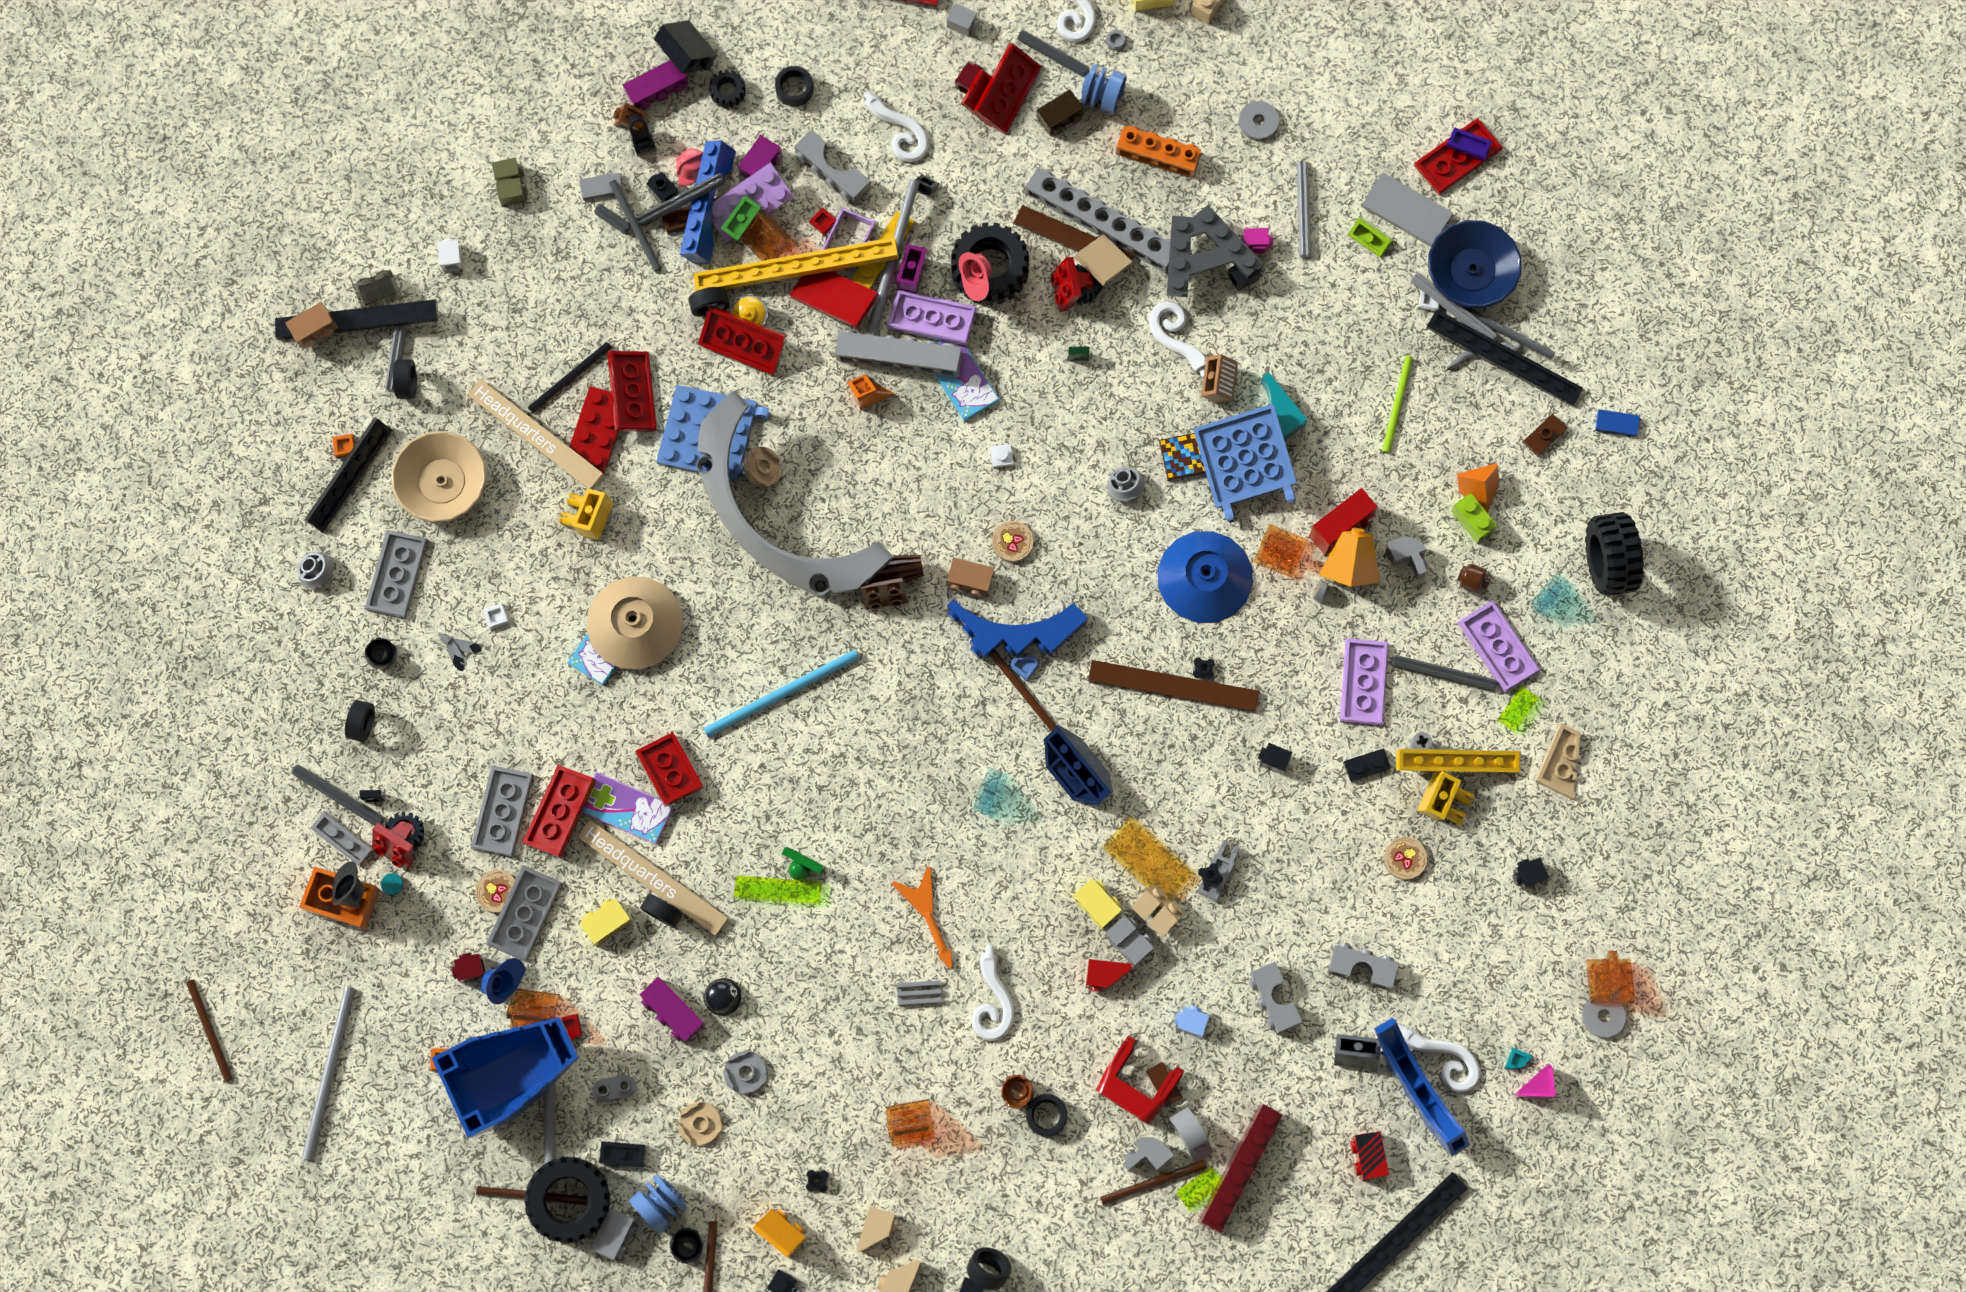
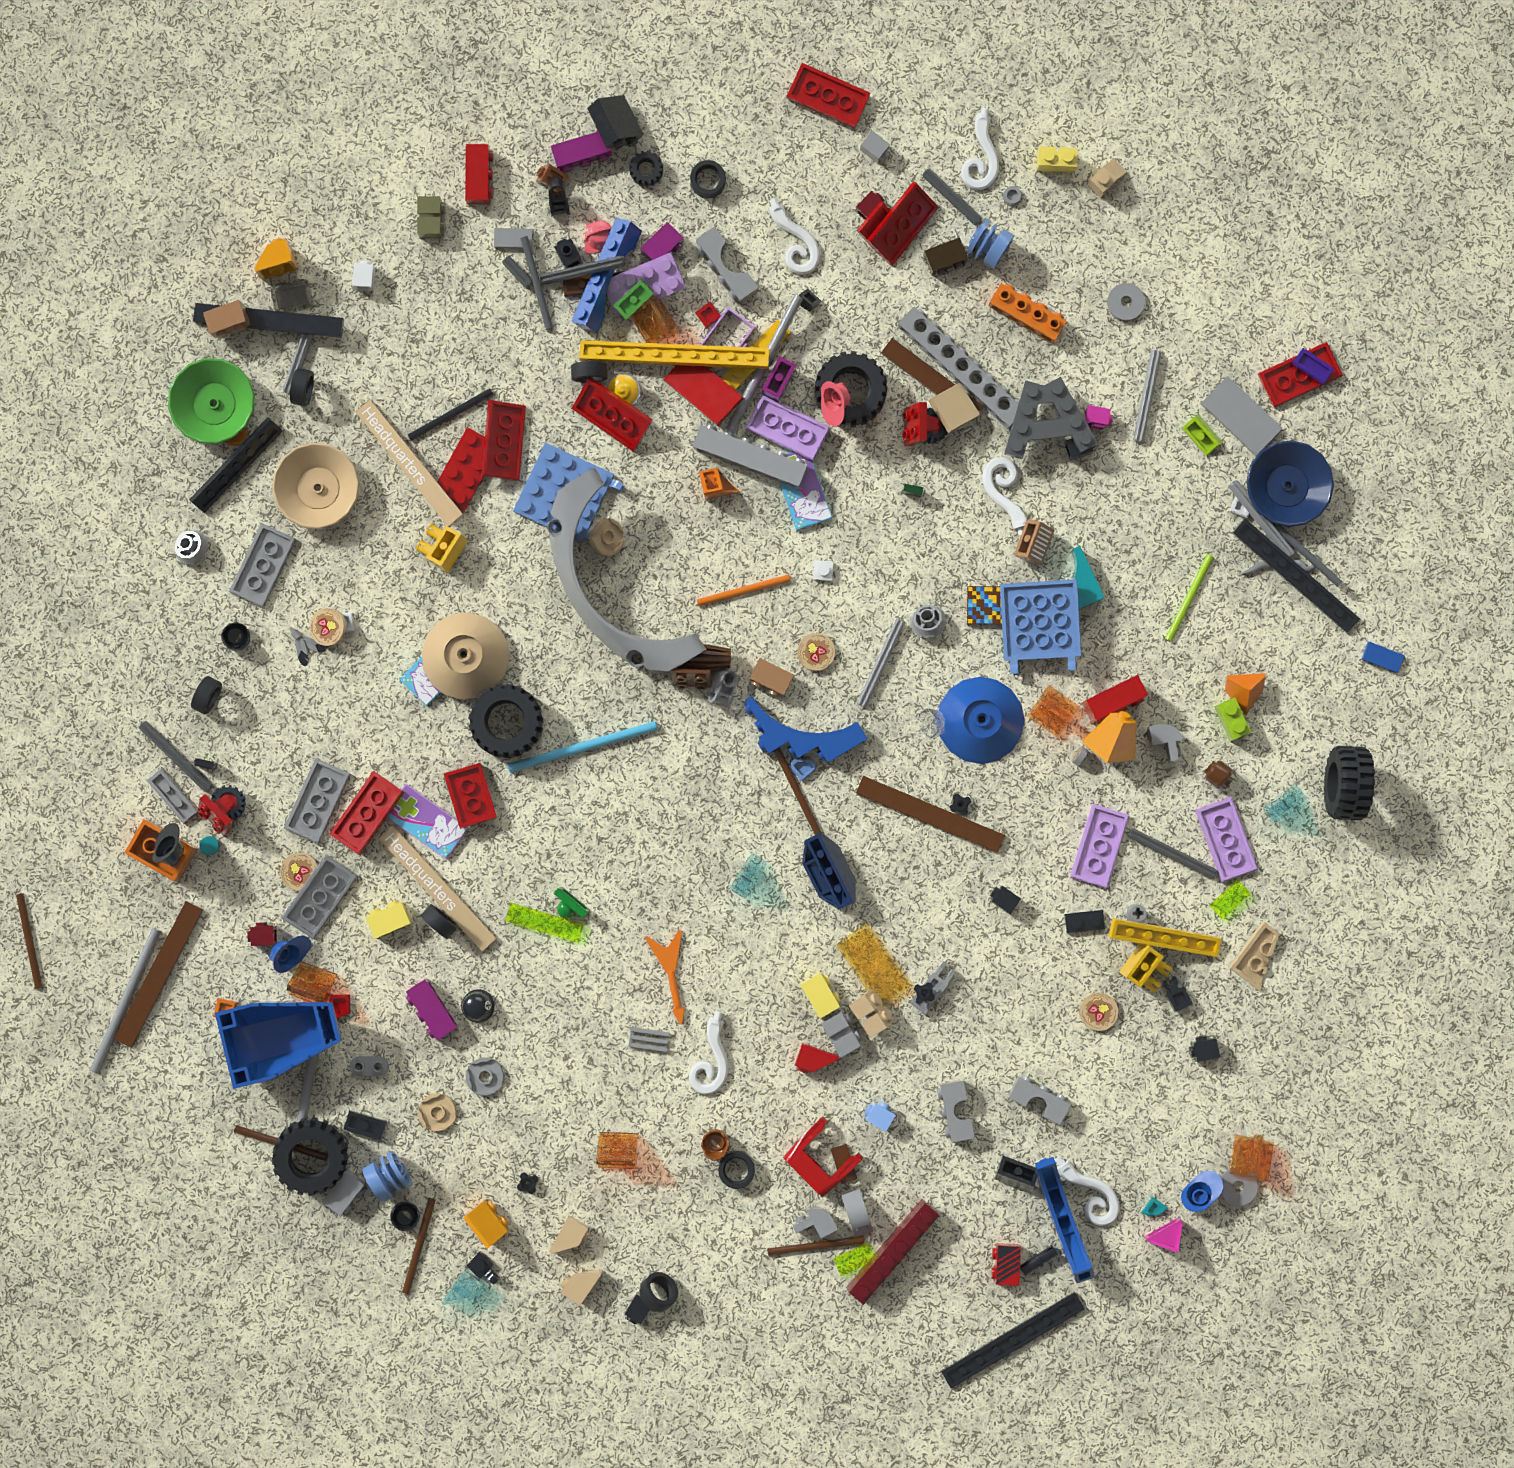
camera: 10 degrees right, 10 degrees up
(297, 399) = (201, 385): none -> bright green dish
(353, 256) = (276, 260): none -> light orange slope
(360, 1036) = (158, 974): none -> reddish brown tile
(479, 623) = (328, 626): none -> tile
(552, 128) = (478, 174): none -> red brick
(699, 707) = (506, 747): none -> black tyre
(920, 601) = (723, 688): none -> light grey piece
(921, 493) = (743, 590): none -> orange piece
(1084, 539) = (880, 663): none -> light grey axle
(1155, 582) = (937, 722): none -> clear hair
(1404, 1144) = (1038, 1260): none -> black pin
(1486, 824) = (1177, 997): none -> black plate
(1545, 435) = (1315, 654): reddish brown plate -> none
(1565, 1027) = (1202, 1191): none -> blue piece

